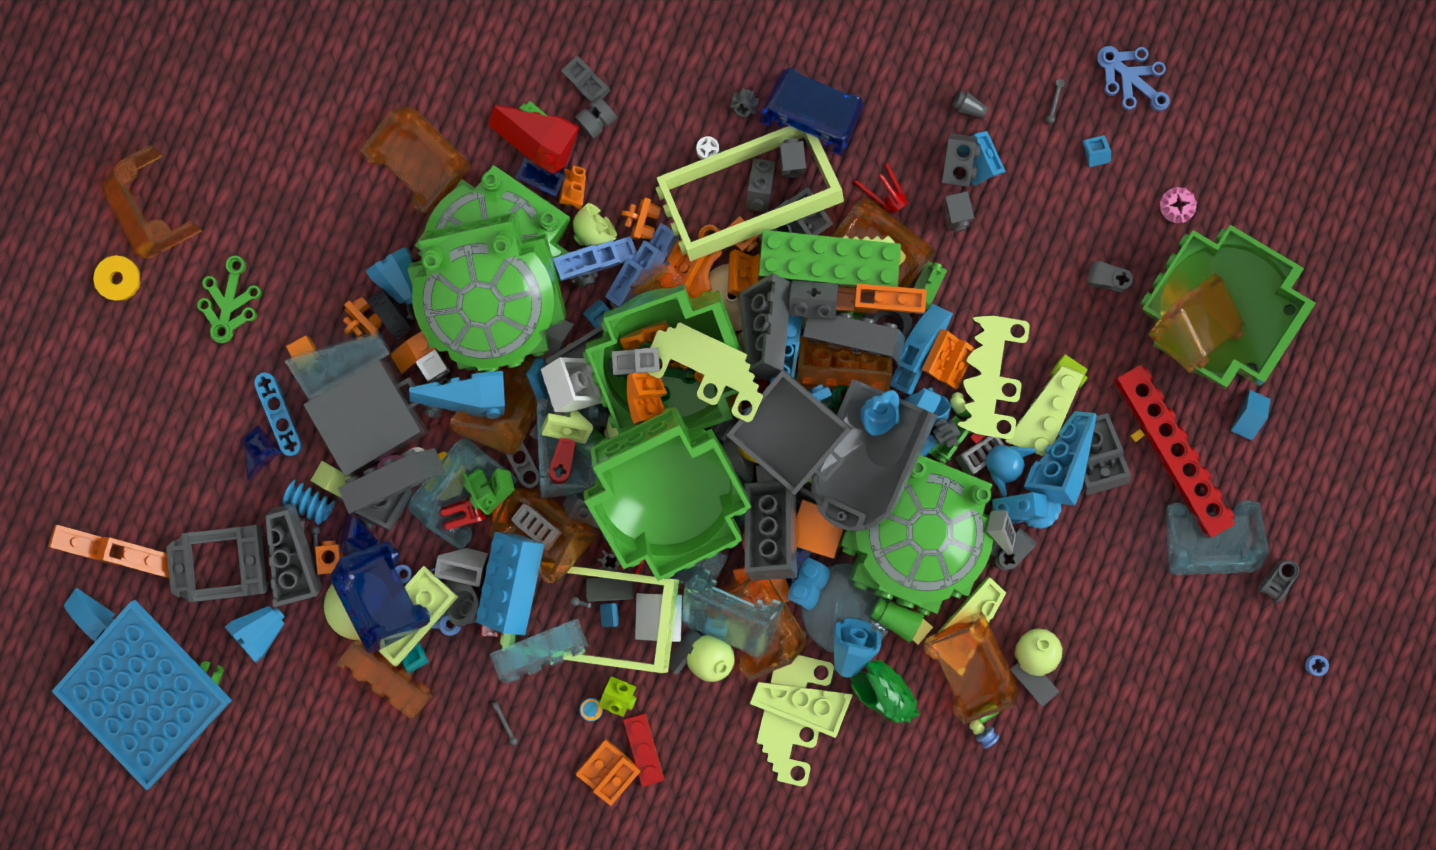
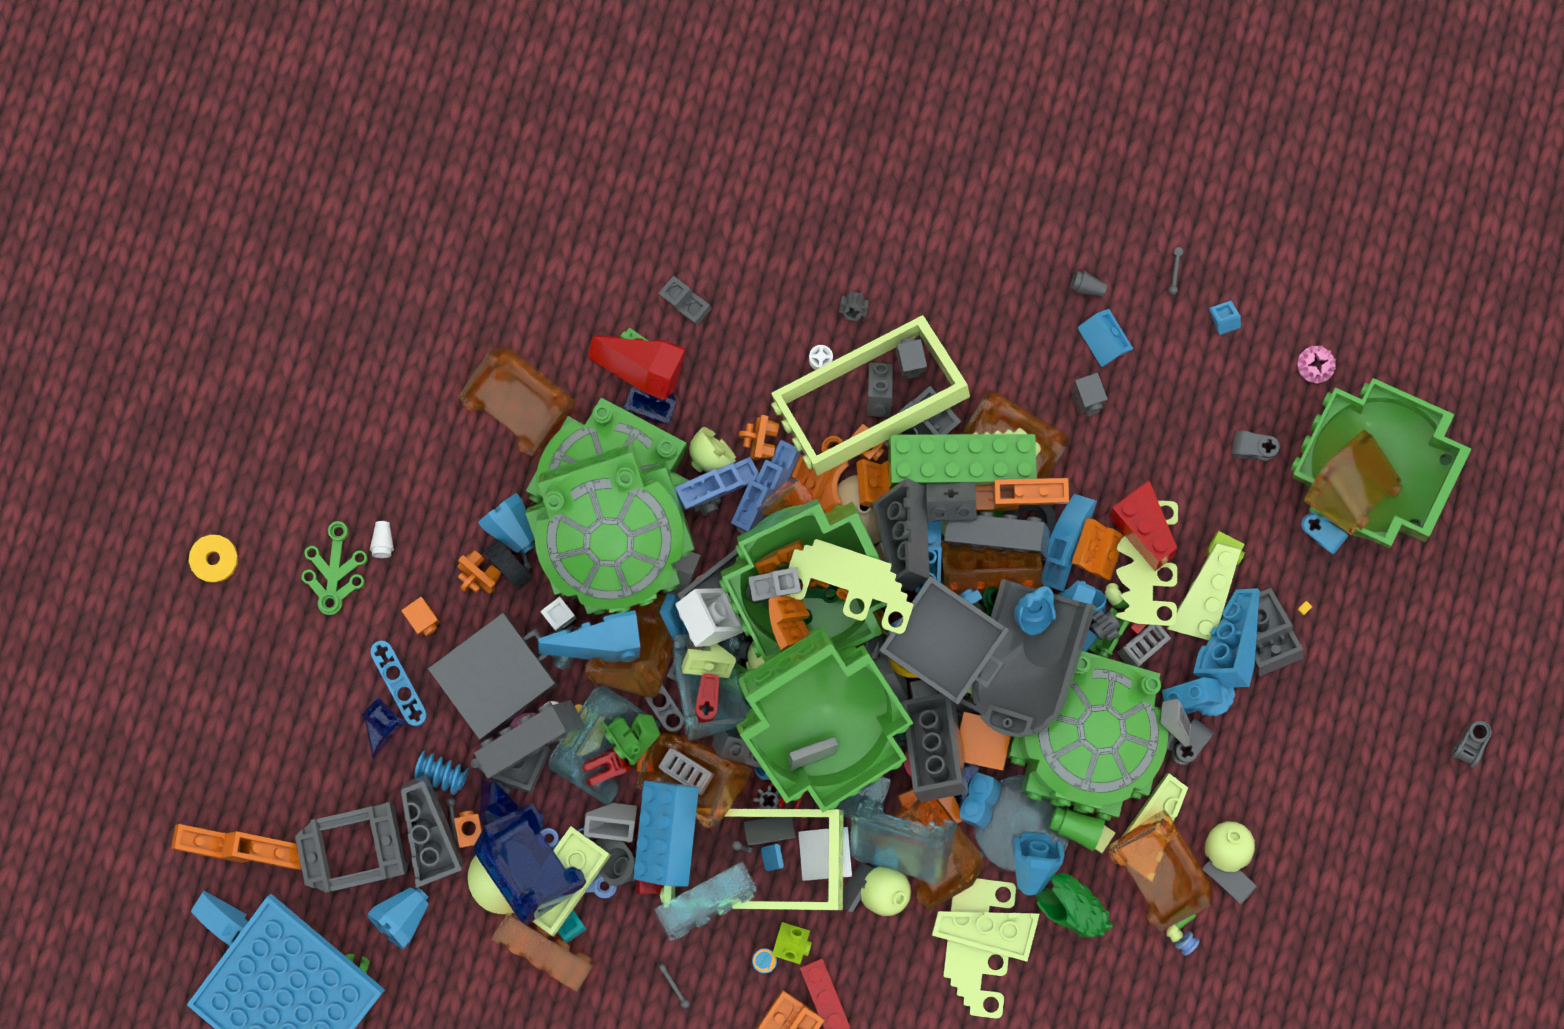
camera: 10 degrees left, 5 degrees down
(144, 237) = (238, 513): clear orange windscreen -> none
(275, 280) = (382, 540): none -> white cone
(329, 478) = (461, 745): yellowish green slope -> none
(332, 364) = (455, 622): clear light blue wedge -> none
(410, 352) = (533, 601): orange slope -> none
(573, 187) = (685, 412): orange hips -> none
(587, 119) = (692, 340): dark grey wheel -> none
(596, 313) = (724, 541): dark azure slope -> none
(655, 523) = (812, 753): none -> light grey tile
(813, 109) = (926, 305): clear blue windscreen -> none
(895, 200) = (1022, 390): red plant -> none
(930, 279) = (1069, 467): bright green hinge -> none
(957, 159) = (1081, 341): dark grey brick -> none
(996, 342) = (1145, 526): none -> red wedge
(1006, 464) = (1172, 652): dark azure piece -> none
(1130, 76) = (1251, 237): medium blue plant -> none
(1167, 368) = (1326, 534): none -> dark azure piece
(1174, 465) = (1346, 634): red brick -> none
(1231, 551) = (1400, 708): clear light blue windscreen -> none
(1251, 415) = (1420, 574): dark azure slope -> none
(1322, 669) = (1529, 833): medium blue bush -> none

